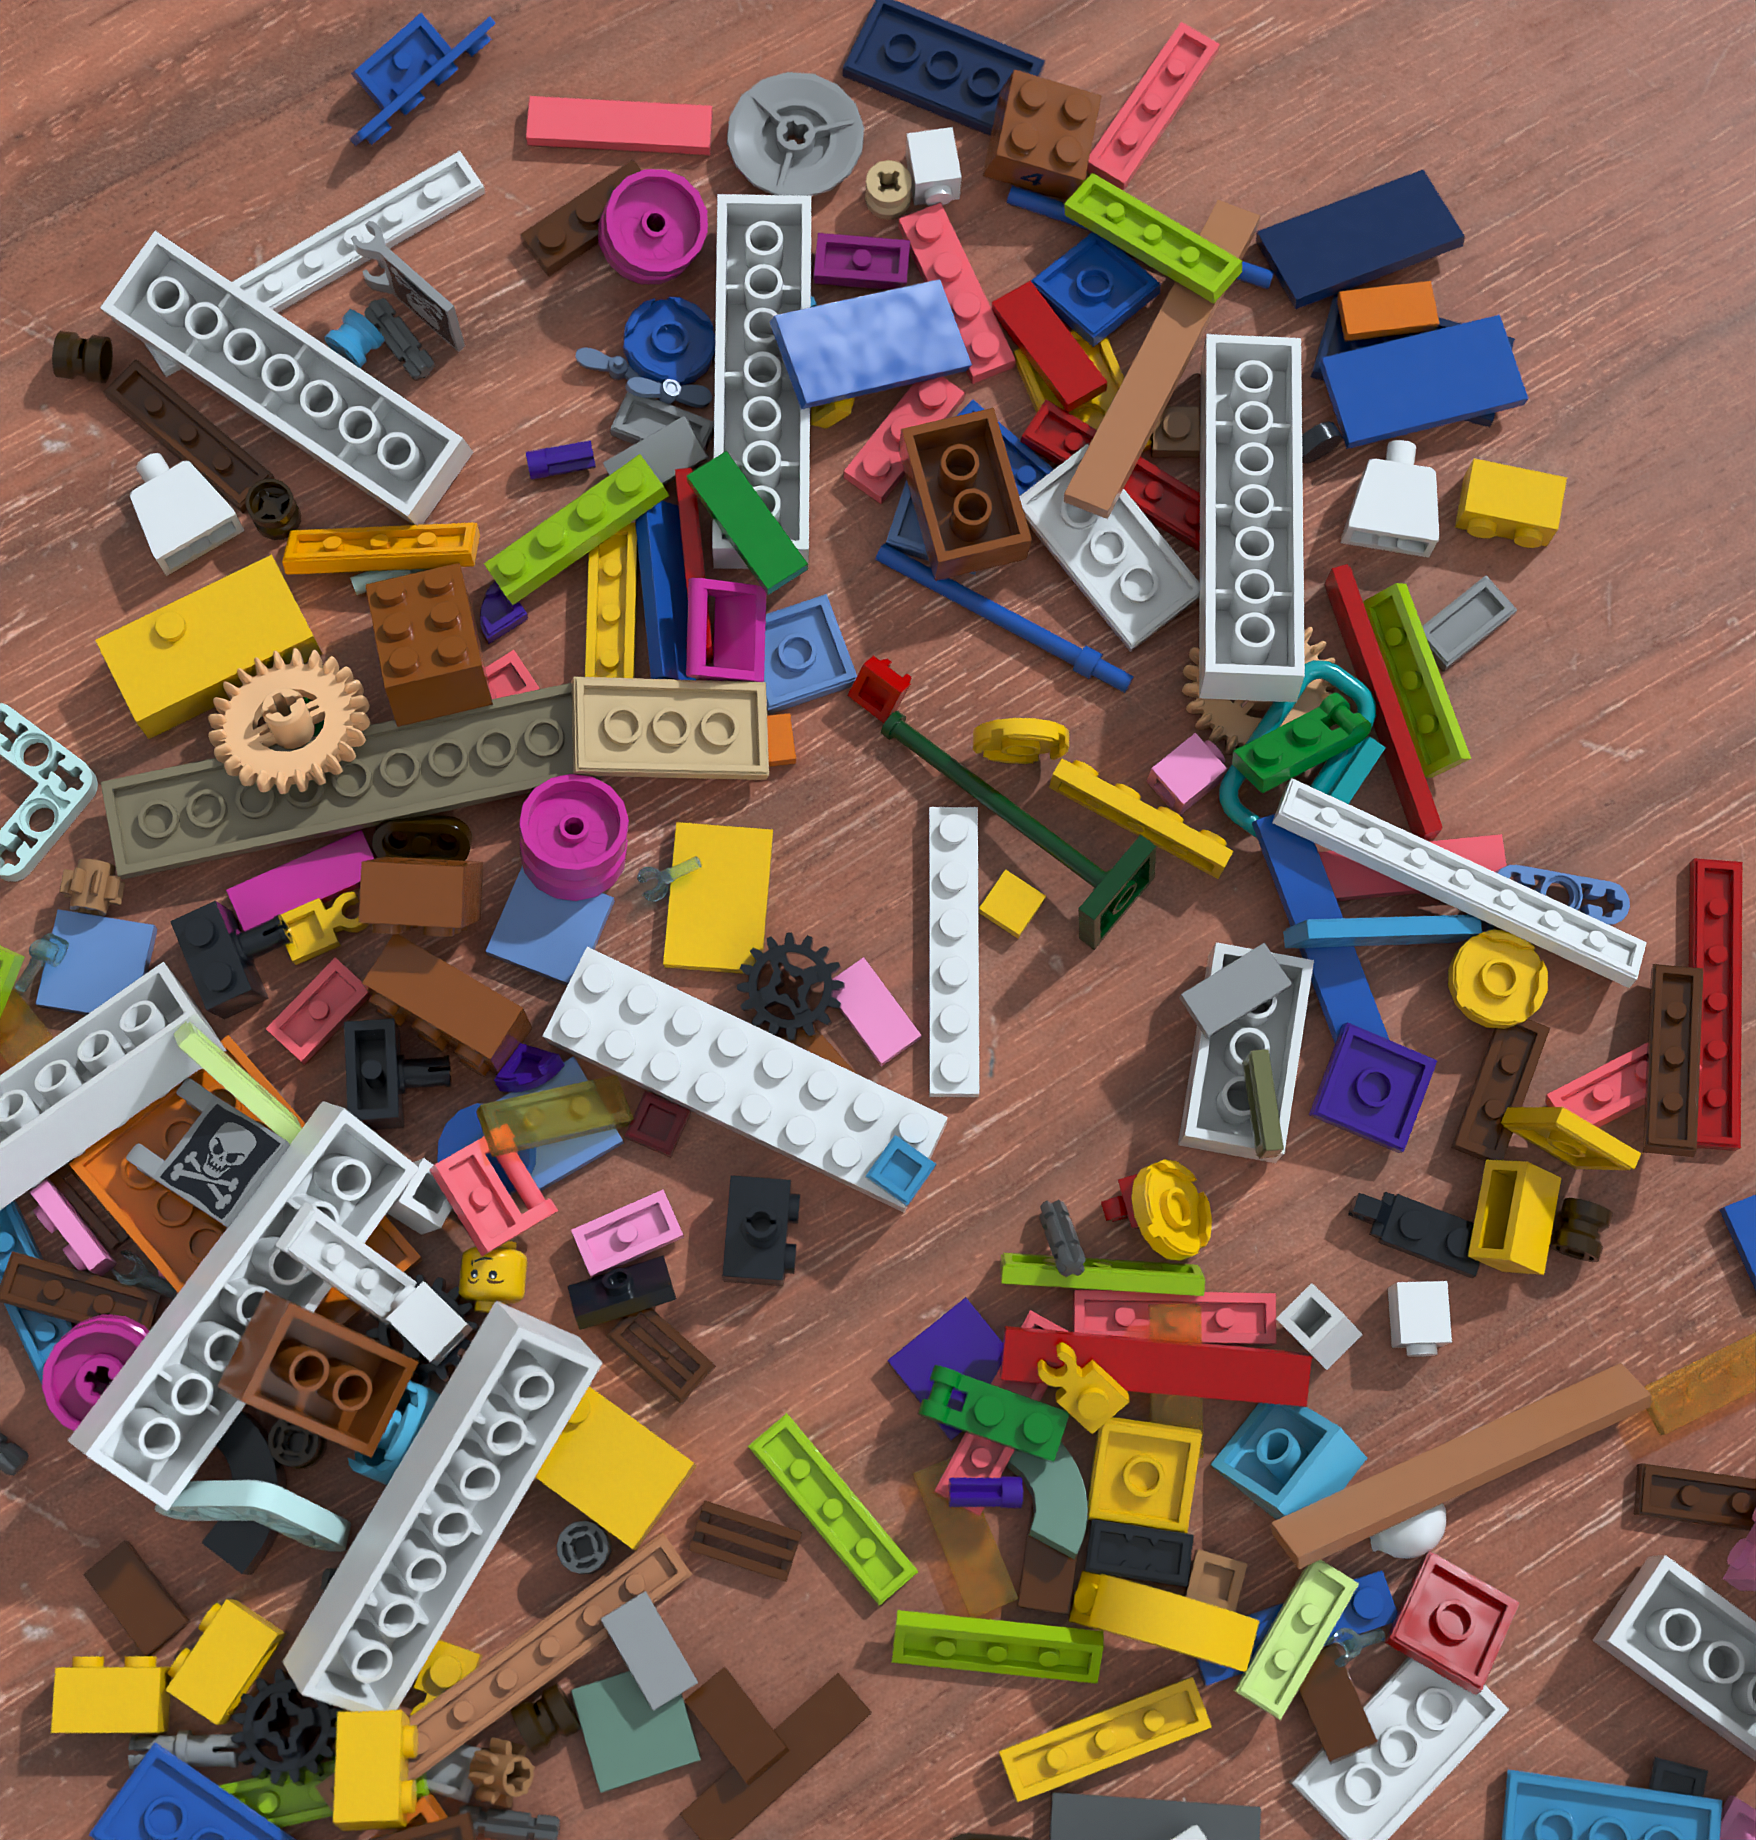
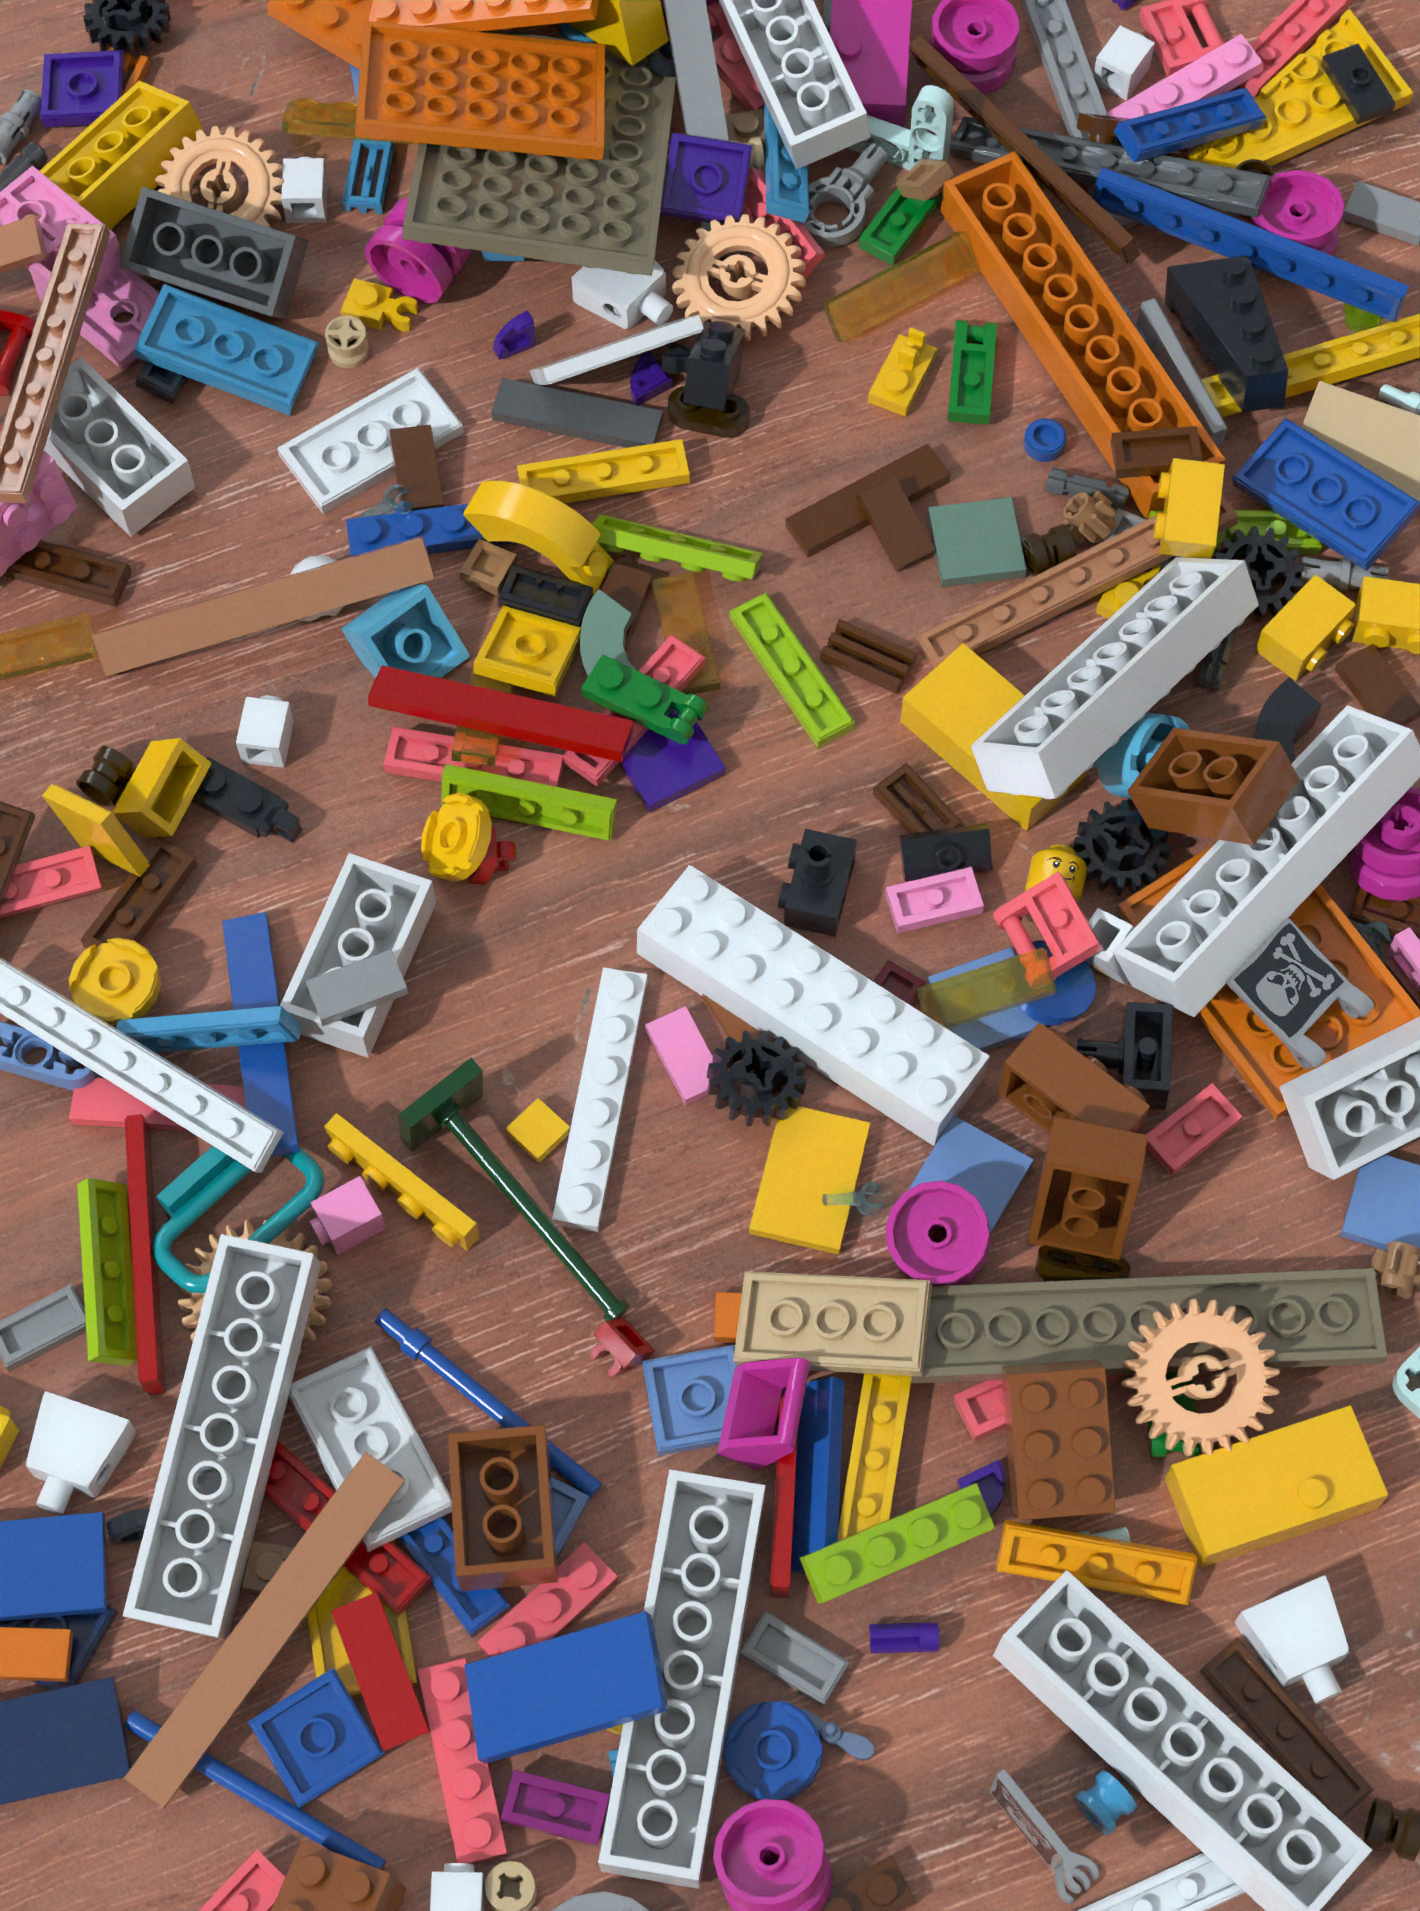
camera: 165 degrees left, 10 degrees down
(224, 956) = (1277, 1182): black brick -> none
(237, 1081) = (1269, 1040): yellowish green tile -> none
(264, 1504) = (1263, 705): light aqua beam -> none
(269, 499) = (1206, 1616): dark brown wheel -> none
(316, 875) = (1201, 1249): dark pink tile -> none
(316, 928) = (1191, 1203): yellow plate -> none
(343, 1261) = (1183, 873): white tile -> none
(400, 339) = (1057, 1801): dark grey axle -> none
(427, 1322) = (1115, 828): white brick -> none
(528, 1069) = (1000, 1045): dark purple tile -> none
(591, 1551) = (1010, 656): dark grey wheel -> none
(648, 1650) = (959, 580): light grey tile -> none
(664, 451) = (798, 1617): light grey tile -> none
(669, 391) = (783, 1691): sand blue piece -> none
(747, 522) = (727, 1499): green tile -> none
(901, 1170) = (687, 884): dark azure tile -> none
(986, 1492) = (663, 643): dark purple piece -> none
(1020, 740) = (499, 1259): yellow tile -> none
(1062, 1238) = (556, 829): dark grey axle -> none
(1086, 1392) = (565, 696): yellow plate -> none
(1153, 238) = (245, 1760): lime plate -> none
(1262, 1104) = (358, 883): olive tile -> none
(1296, 1638) = (436, 506): yellowish green tile -> none
(1301, 743) = (237, 1206): green plate -> none
(1319, 1326) = (353, 728): white brick -> none
(1373, 1087) = (253, 913): dark purple tile -> none
(1452, 1623) = (304, 509): tile -> none

